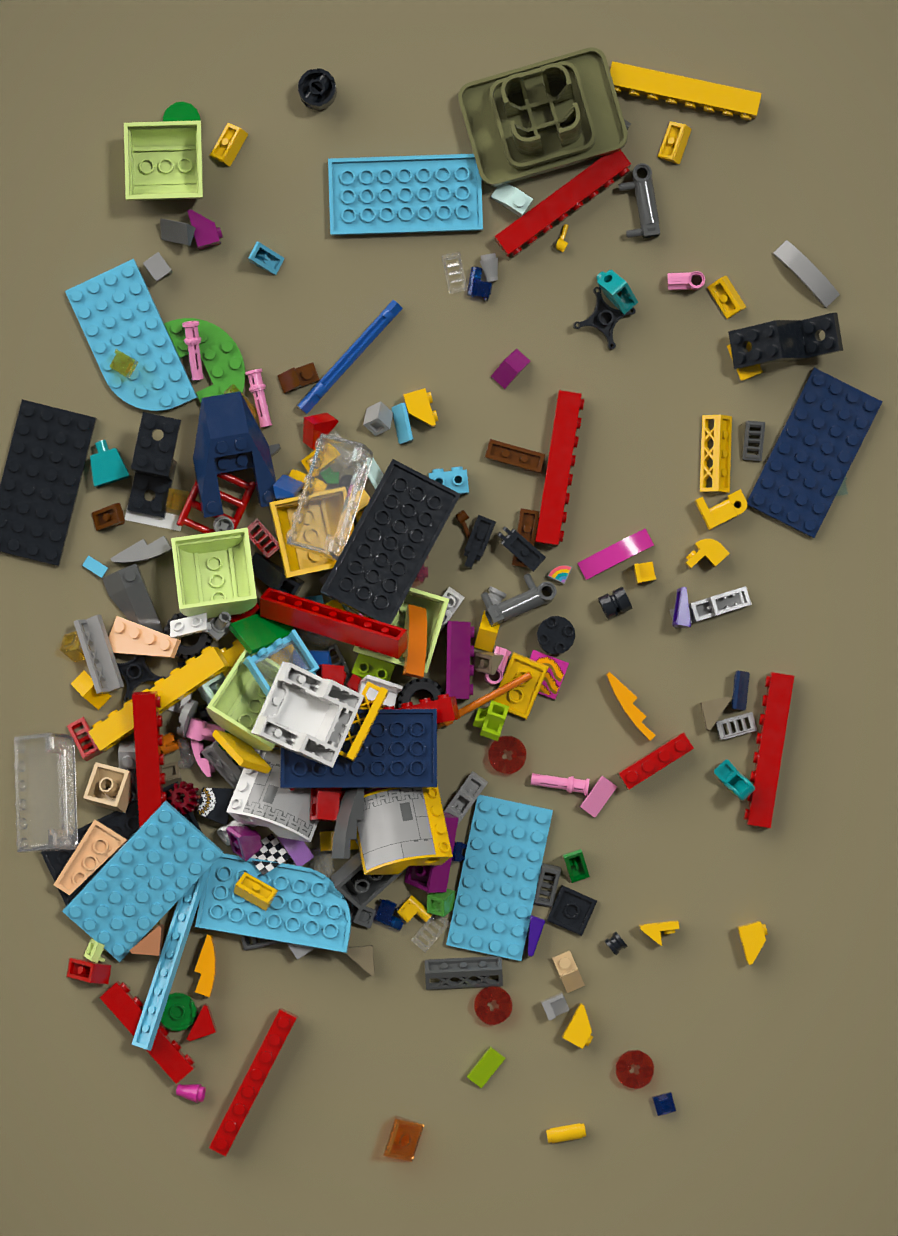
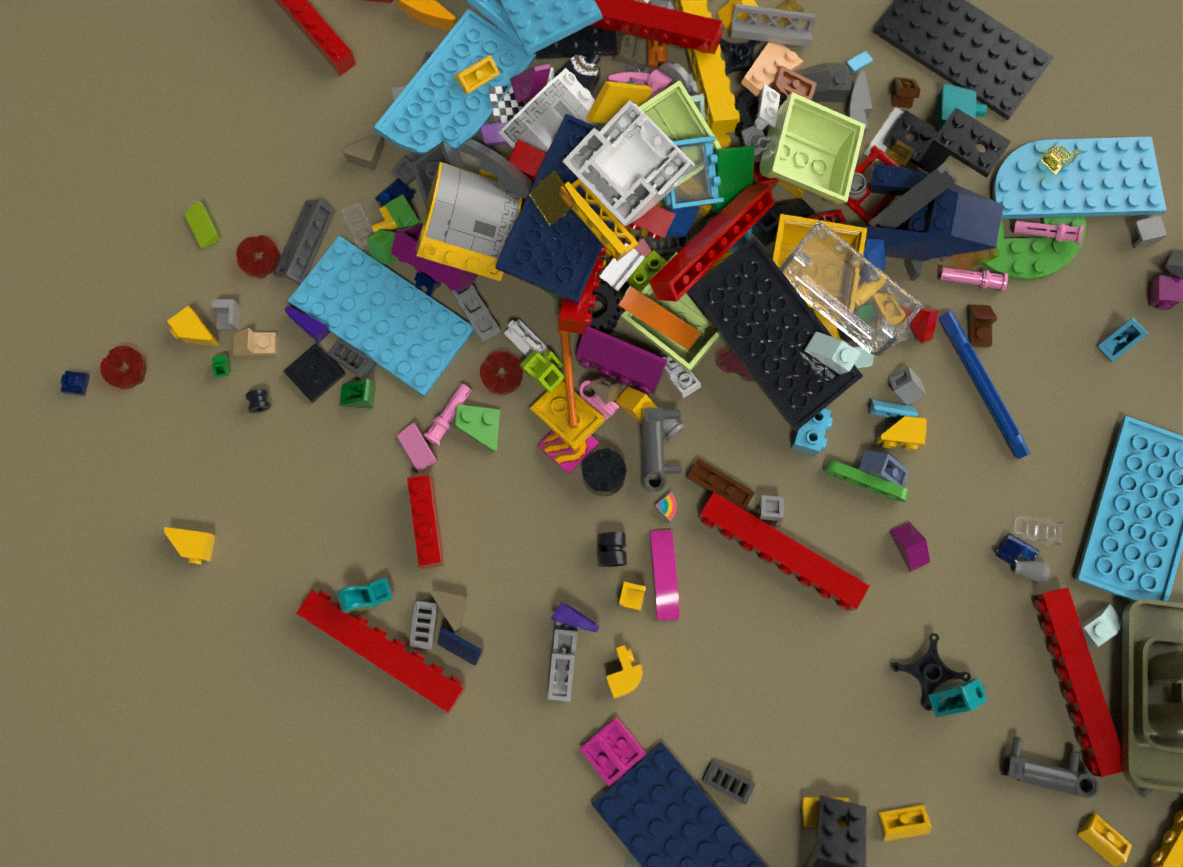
camera: 110 degrees right, 10 degrees down
(158, 610) = (788, 81): none -> wing
(184, 792) = (598, 44): dark red gear -> none
(227, 473) = (915, 198): none -> dark grey fence
(363, 764) = (552, 198): none -> clear yellow piece
(388, 491) = (832, 352): none -> light aqua slope
(403, 1139) = (173, 119): clear orange slope -> none
(405, 899) = (402, 212): none -> bright green panel
(458, 412) = (884, 467): none -> sand blue slope
(462, 517) = (768, 428): reddish brown hand -> none
(470, 748) = (524, 338): none -> white hinge
(472, 422) = (866, 481): none -> bright green beam
(478, 540) = (737, 435): black hinge -> none
(515, 456) = (813, 511): reddish brown plate -> none
(521, 549) = (711, 473): black hinge -> none
(530, 490) = (771, 508): none -> light grey panel
(558, 753) = (479, 424): none -> bright green wing
(561, 244) = (1029, 659): yellow hand -> none
(566, 1133) = (97, 274): yellow piece -> none
(600, 988) = (221, 366): none -> green piece
(626, 699) = (504, 518): light orange slope -> none
(653, 929) = (253, 446): yellow slope -> none
(682, 281) = (941, 779): bright pink piece -> none
(719, 453) = (729, 736): yellow fence -> none
(723, 511) = (664, 714): yellow piece -> none
(768, 538) = (613, 751): none -> dark pink slope

